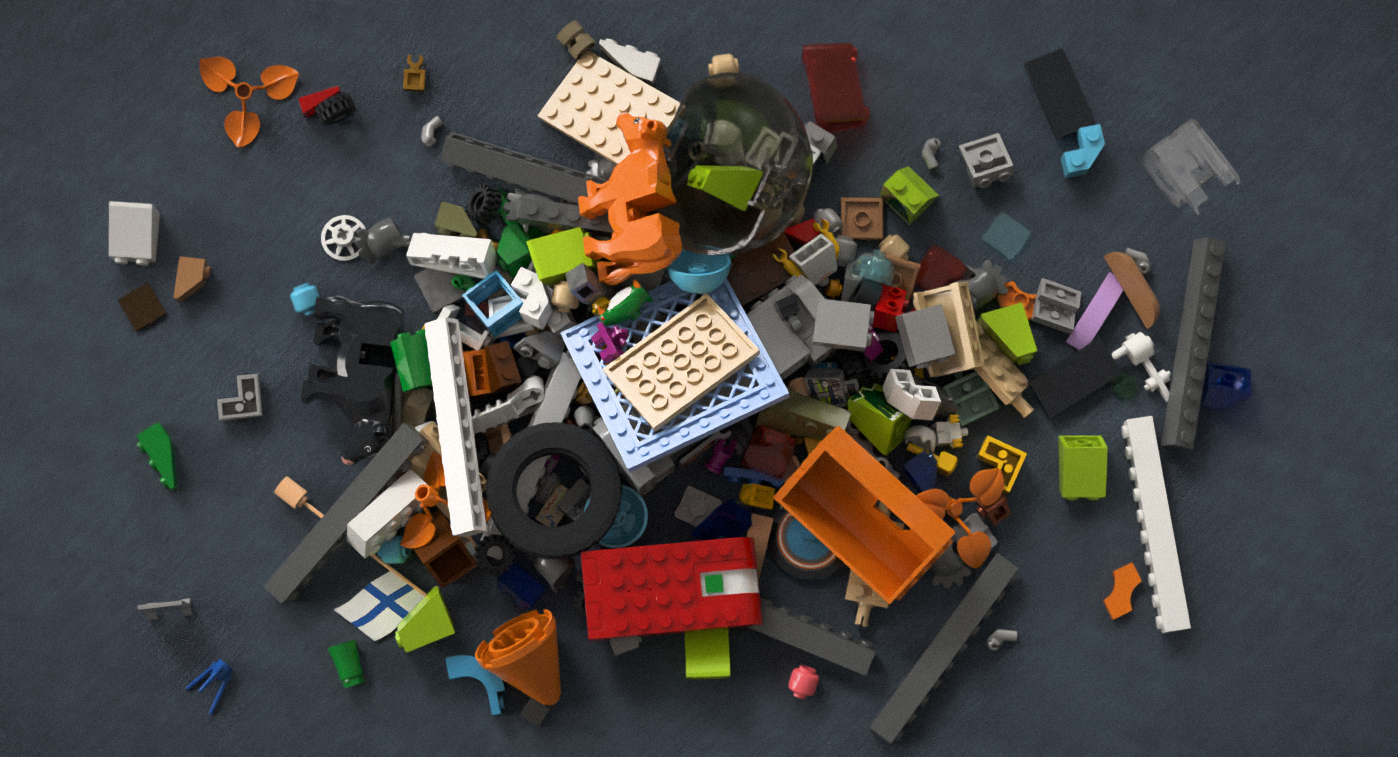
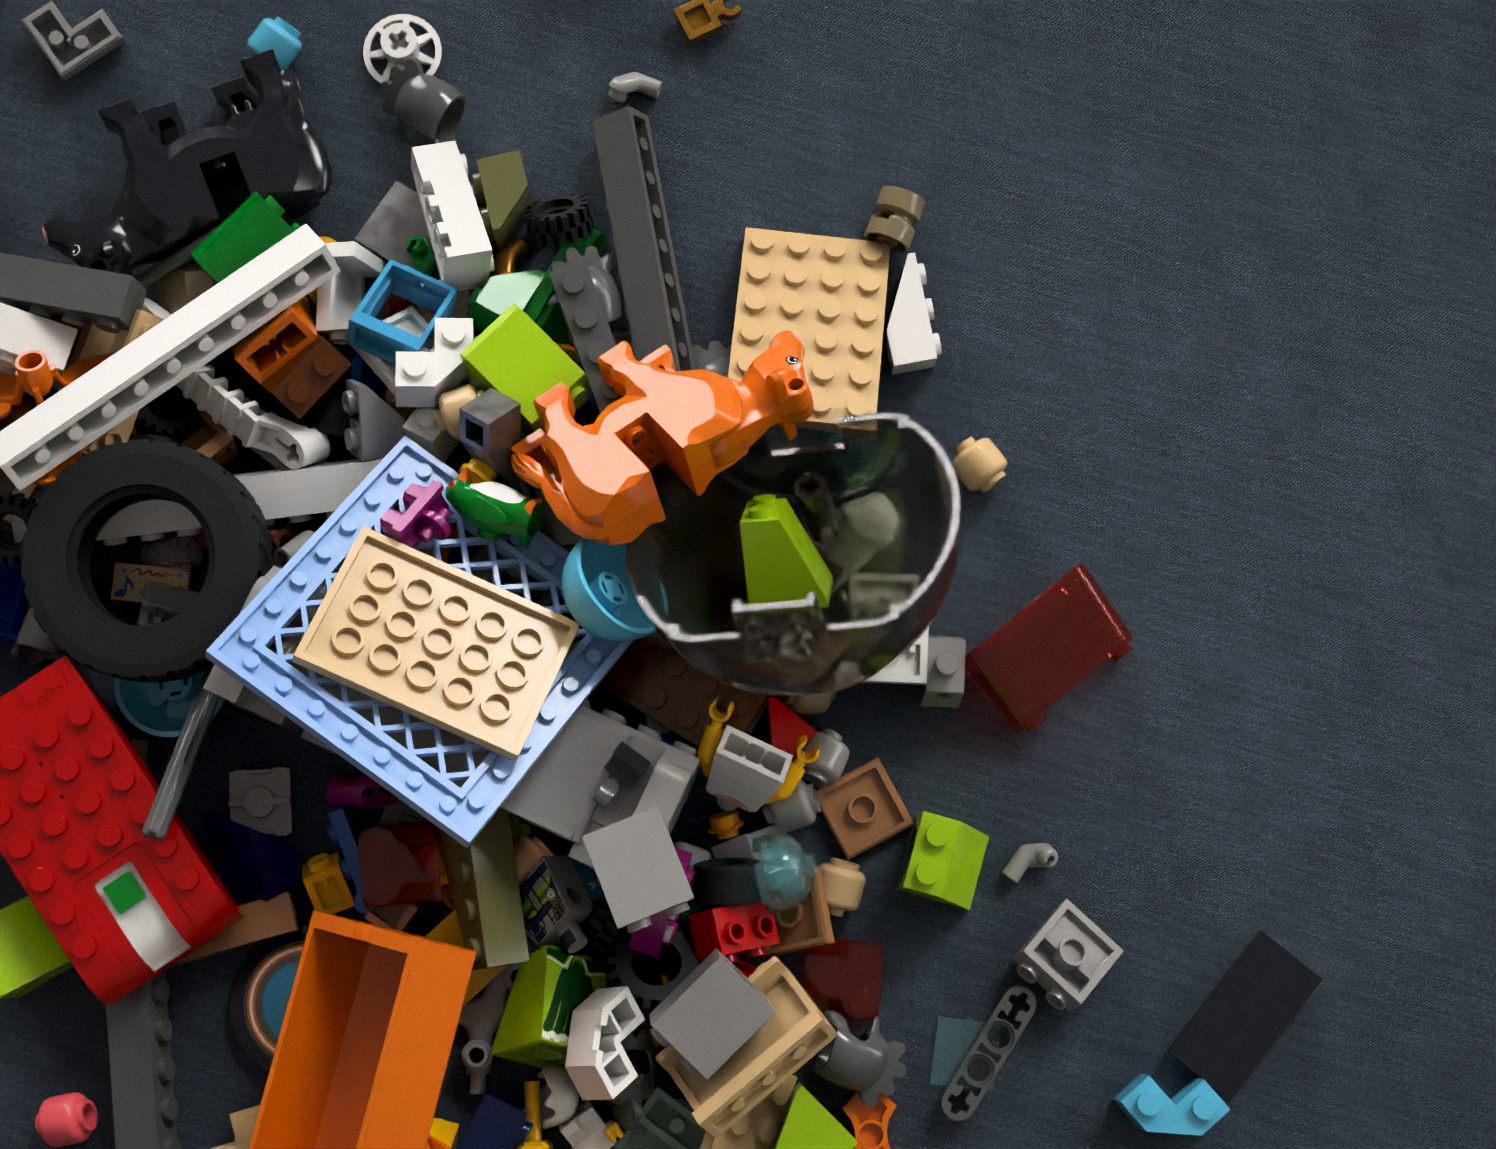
camera: 60 degrees right, 0 degrees up
(661, 520) = (181, 762): none -> dark grey axle
(1008, 225) = (983, 1049): none -> dark grey beam

